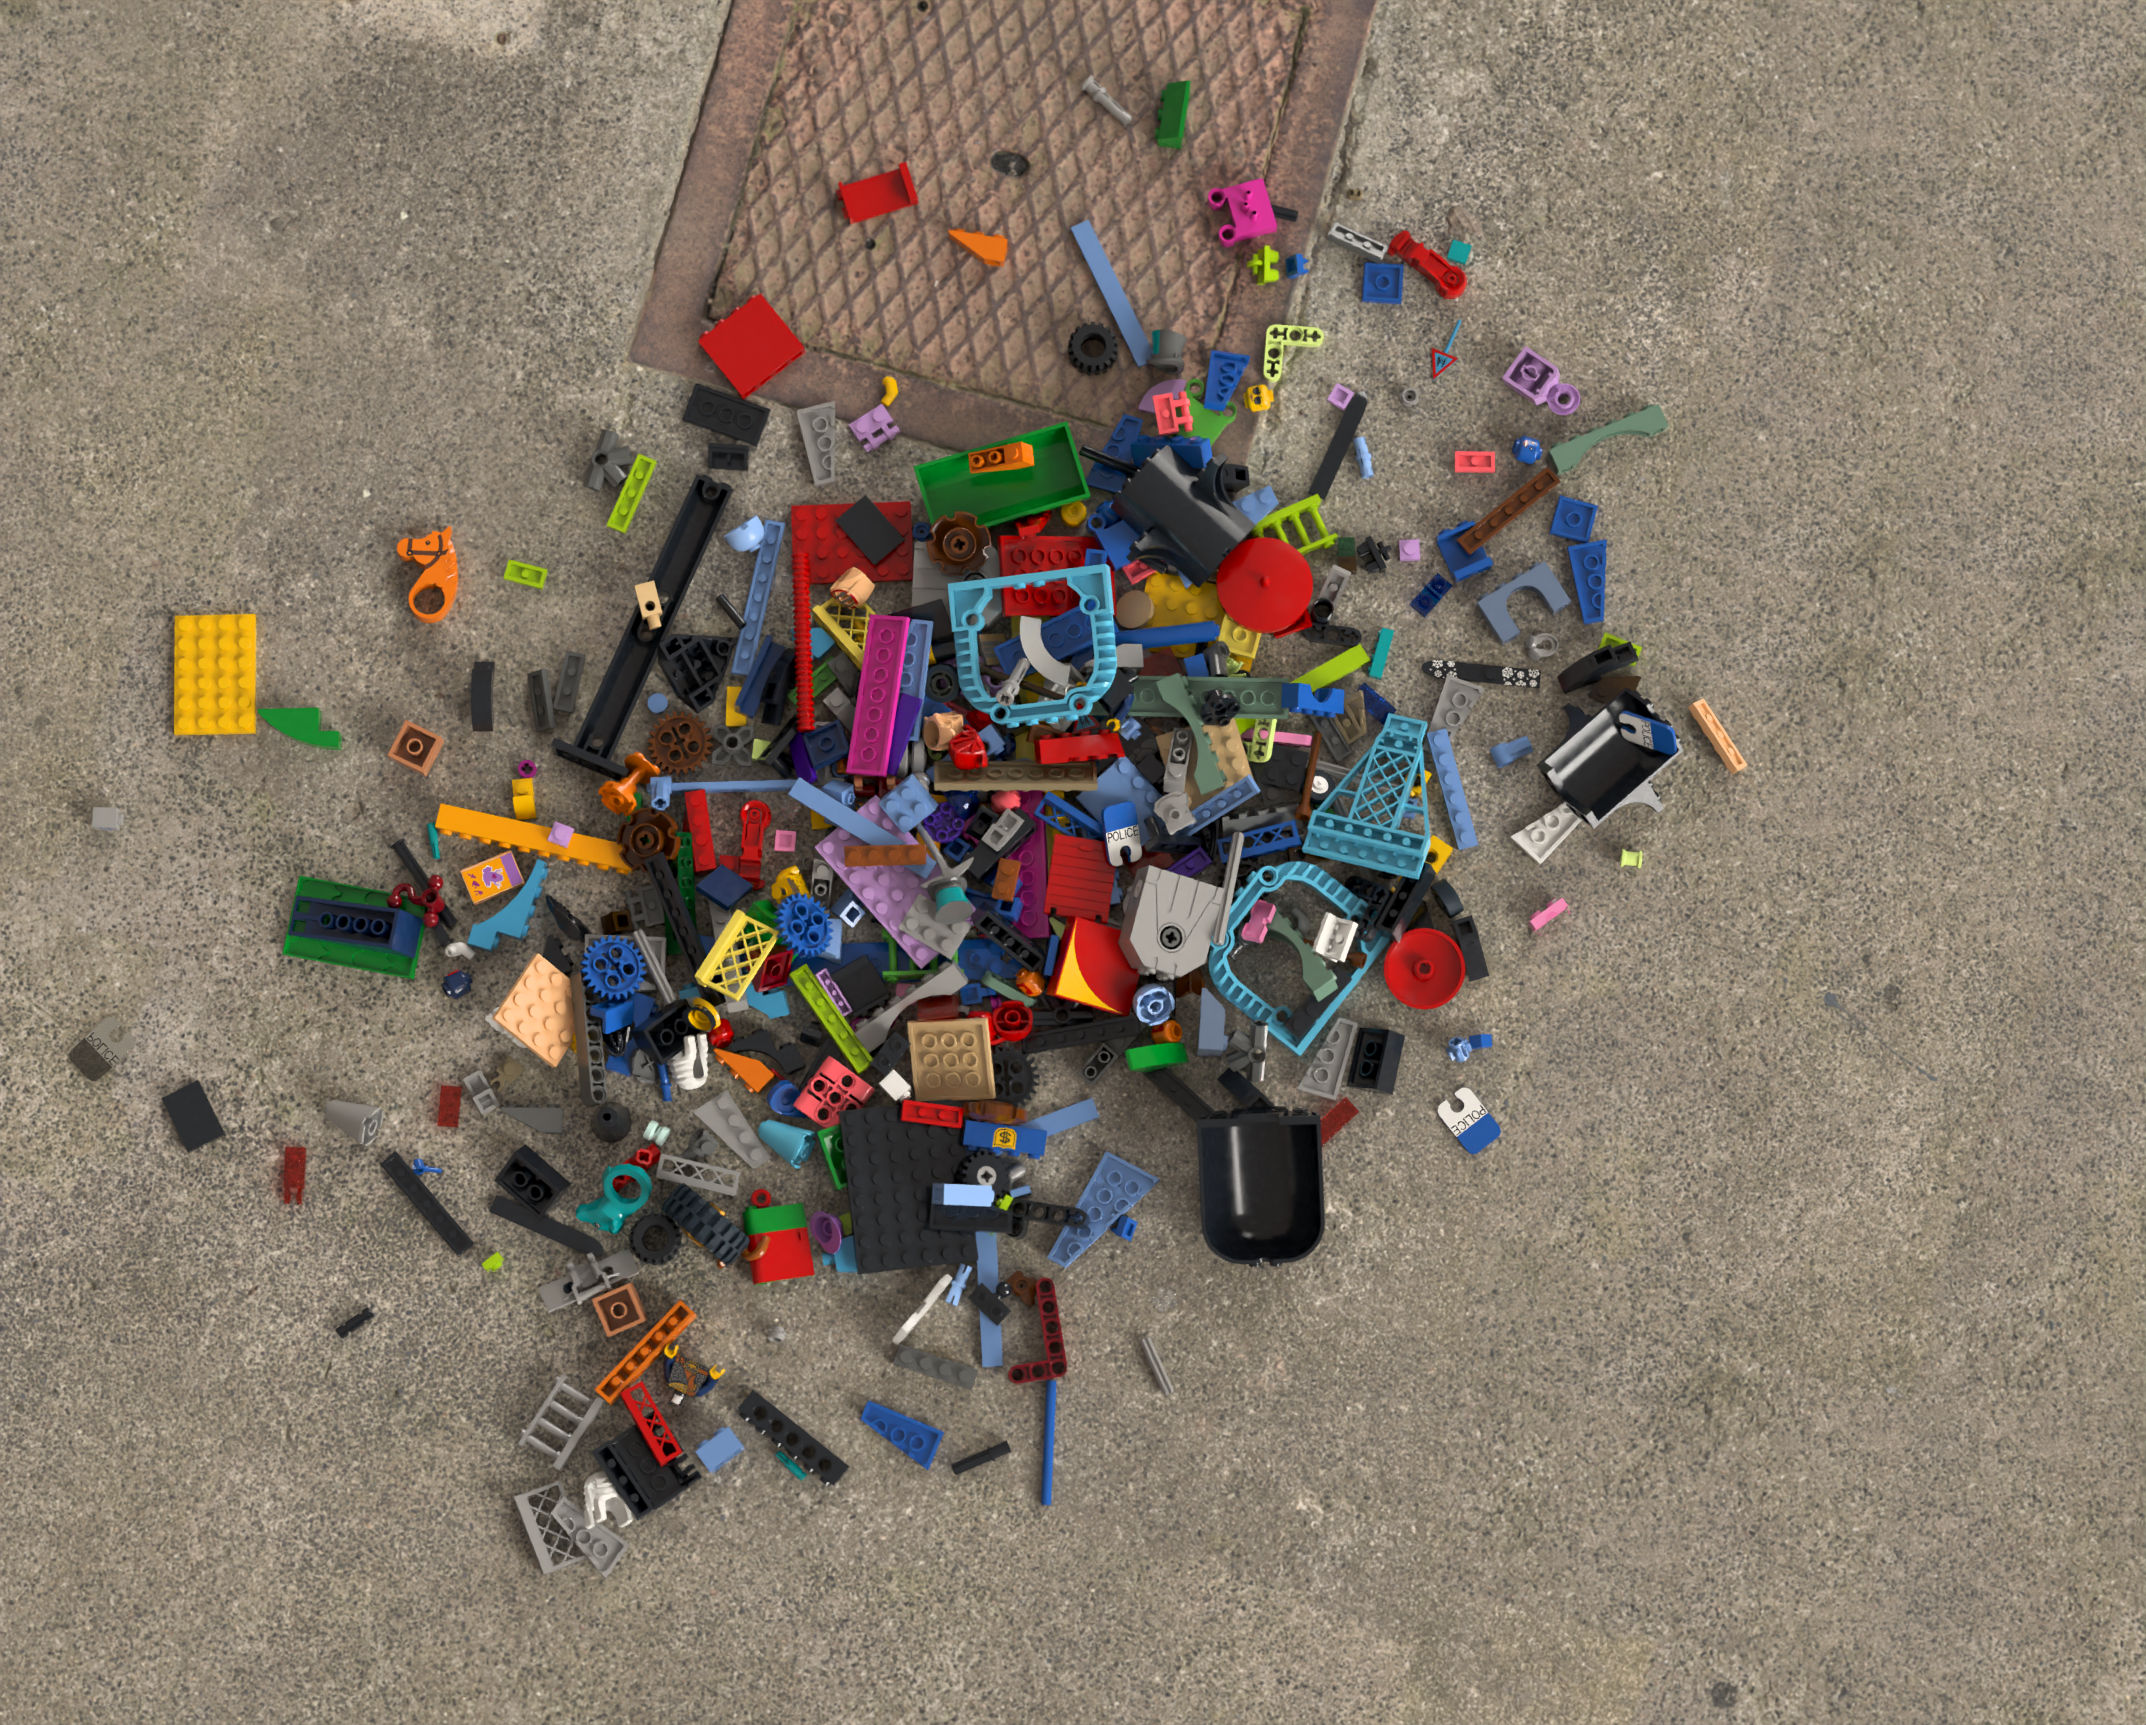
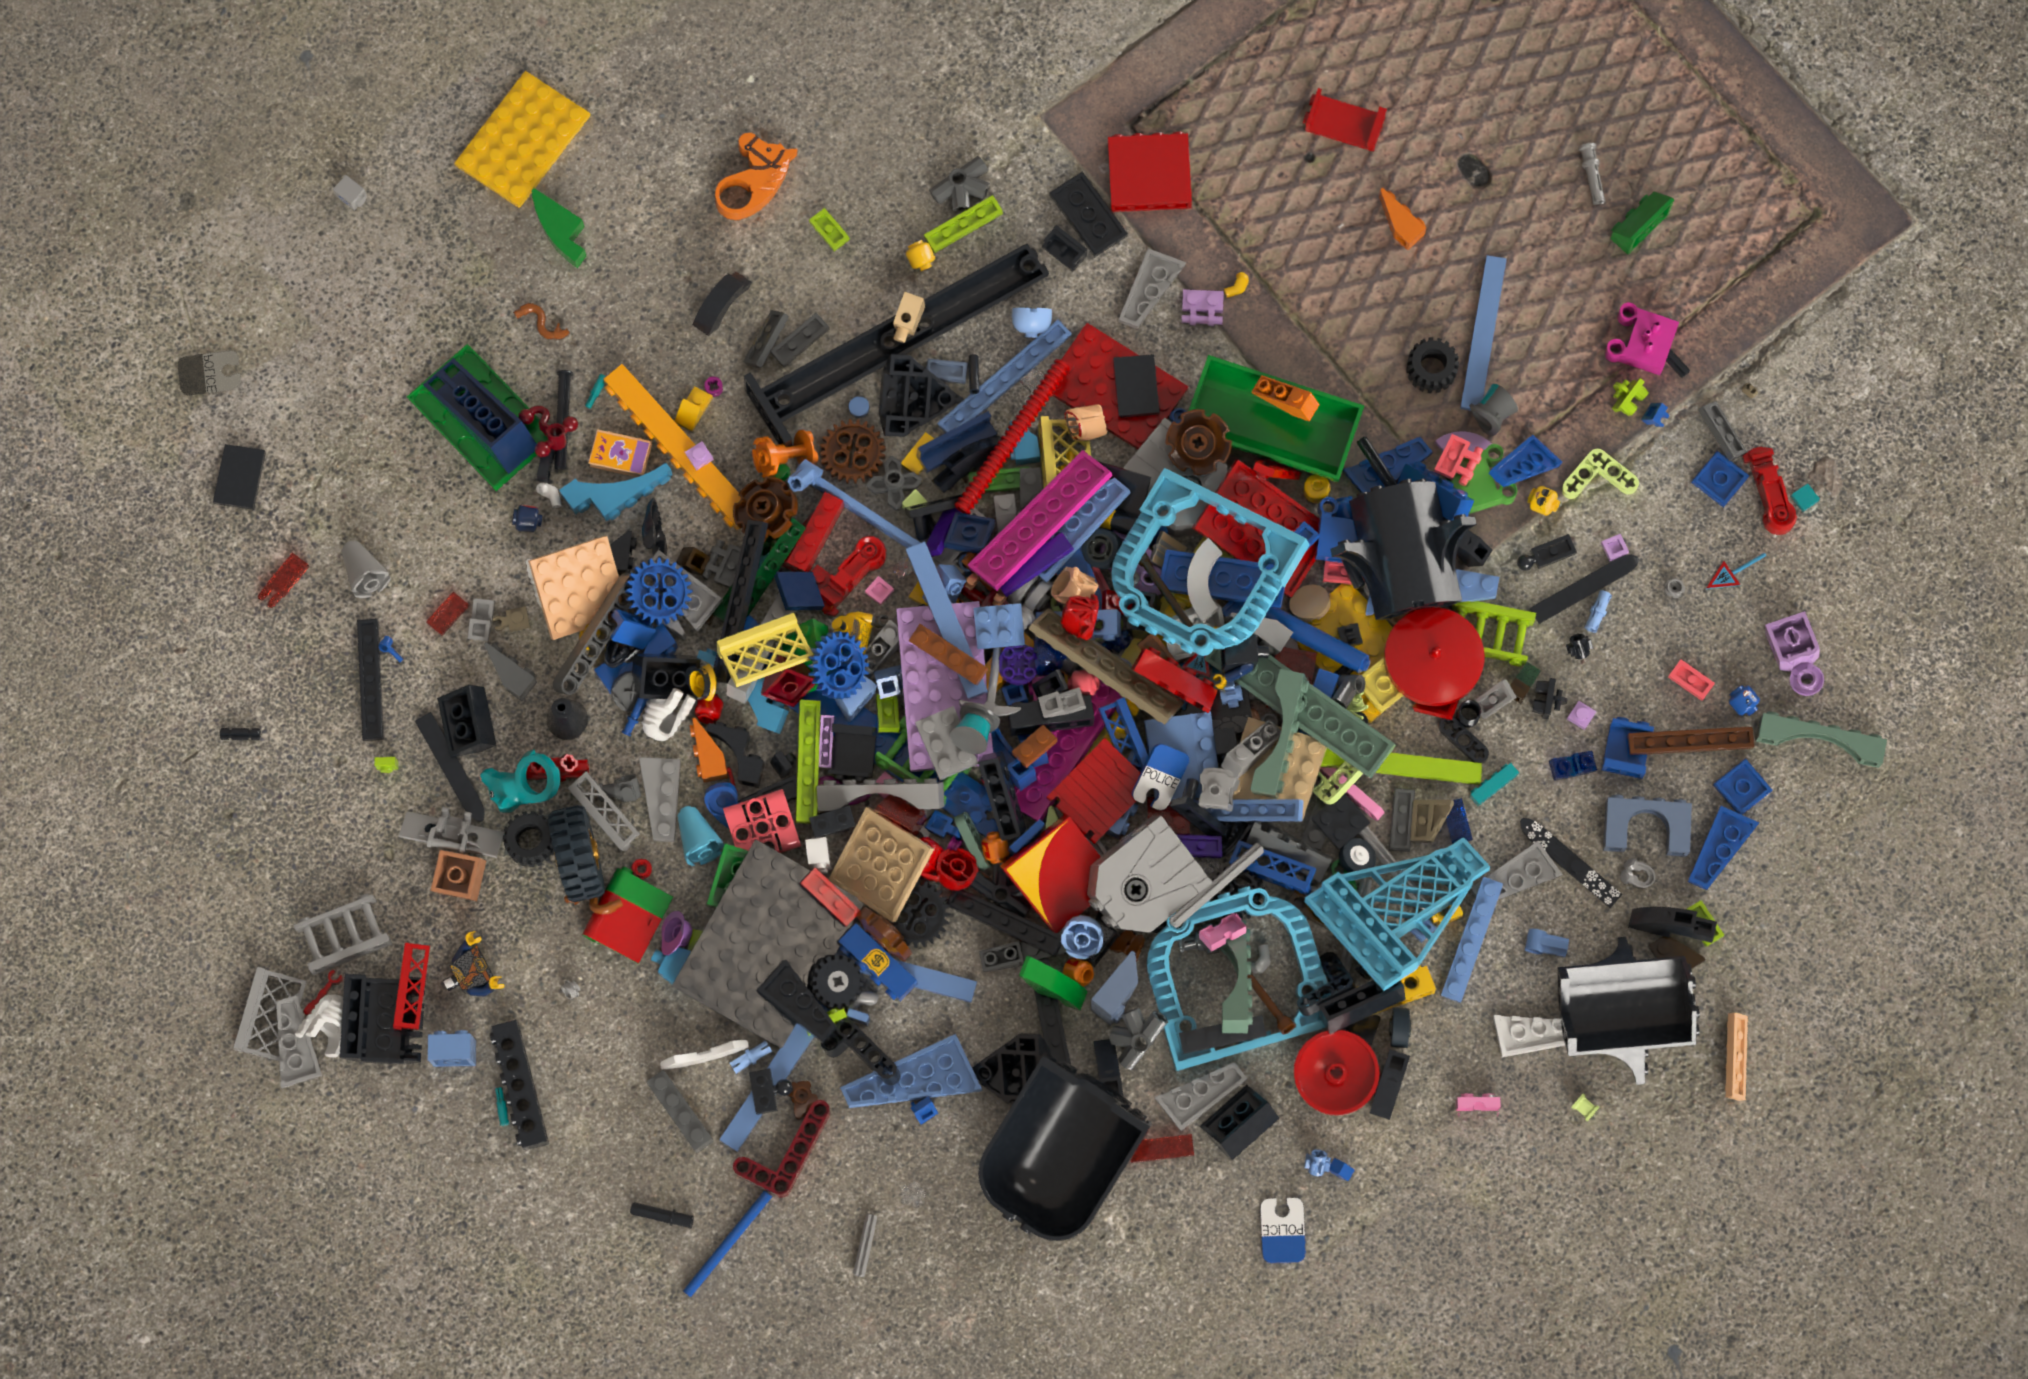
camera: 40 degrees right, 5 degrees down
(366, 816) = (529, 308): none -> dark orange animal
(415, 748) = (635, 306): nougat brick -> none
(580, 1482) = (323, 992): none -> red piece
(616, 544) = (920, 255): none -> yellow head
(645, 1352) = (453, 925): orange brick -> none
(654, 966) = (694, 615): light grey axle -> none
(656, 1133) = (596, 753): light aqua wheel -> none
(707, 623) = (948, 370): none -> sand blue tile
(866, 936) = (887, 714): none -> lime plate
(907, 1434) = (616, 1152): blue wing -> none
(962, 1194) = (805, 981): light blue slope -> none
(1011, 686) = (1154, 587): light grey pin -> none
(1172, 1144) = (1011, 1065): none -> black wedge
(1185, 613) = (1350, 634): none -> black tile
(1219, 708) = (1316, 727): black plate -> none
(1291, 438) = (1548, 553): none -> black plate
(1299, 699) = (1393, 766): blue arch -> none
(1303, 811) = (1329, 866): reddish brown piece -> none
(1334, 937) = (1276, 989): white bracket -> none
(1369, 496) = (1579, 646): none -> black gear
(1649, 733) = (1675, 1008): piece -> none

